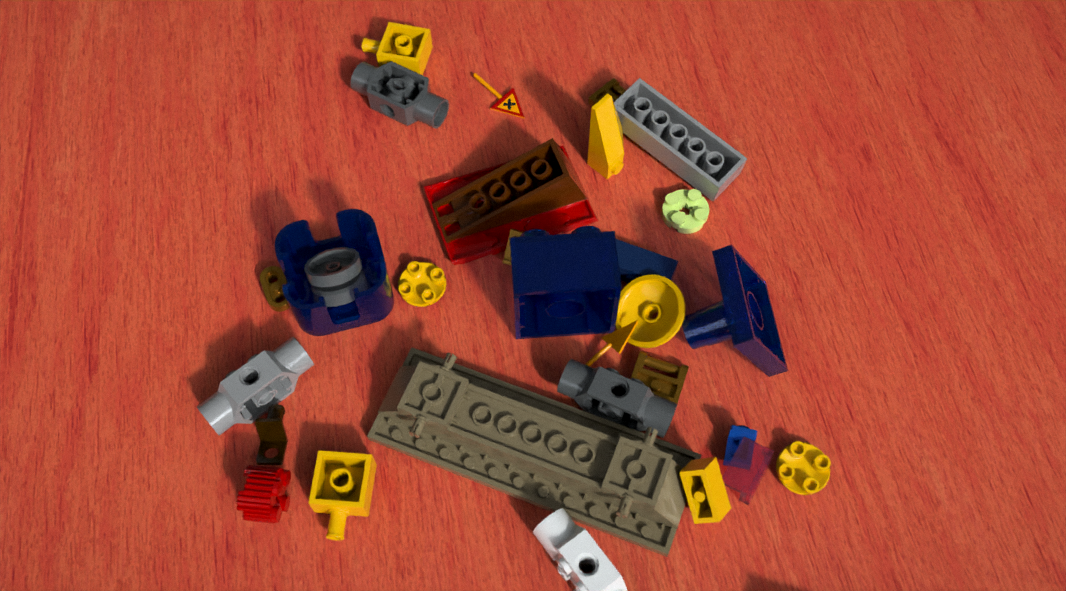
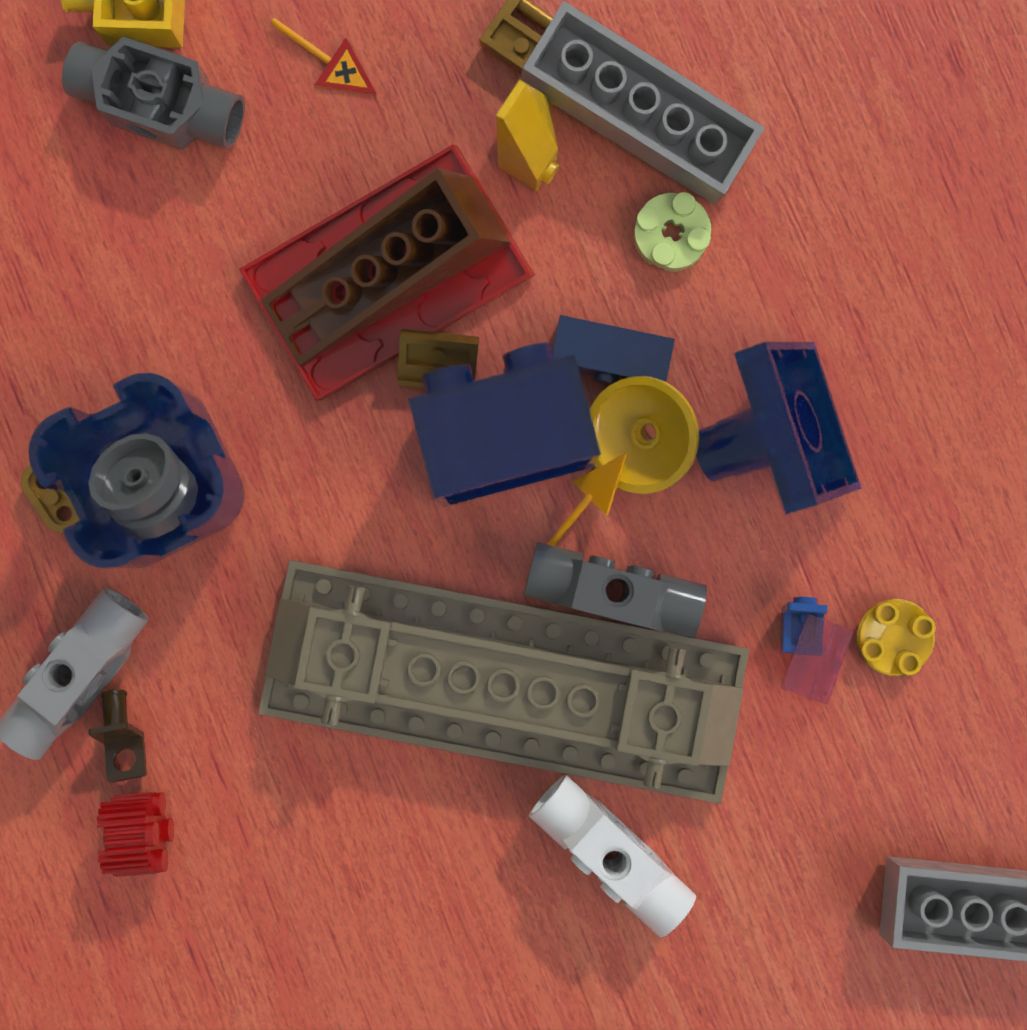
camera: 10 degrees left, 25 degrees up
(342, 488) = (243, 800): yellow brick -> none
(422, 283) = (279, 445): yellow dish -> none
(658, 383) = (667, 549): pearl gold plate -> none
(705, 490) = (762, 711): yellow brick -> none

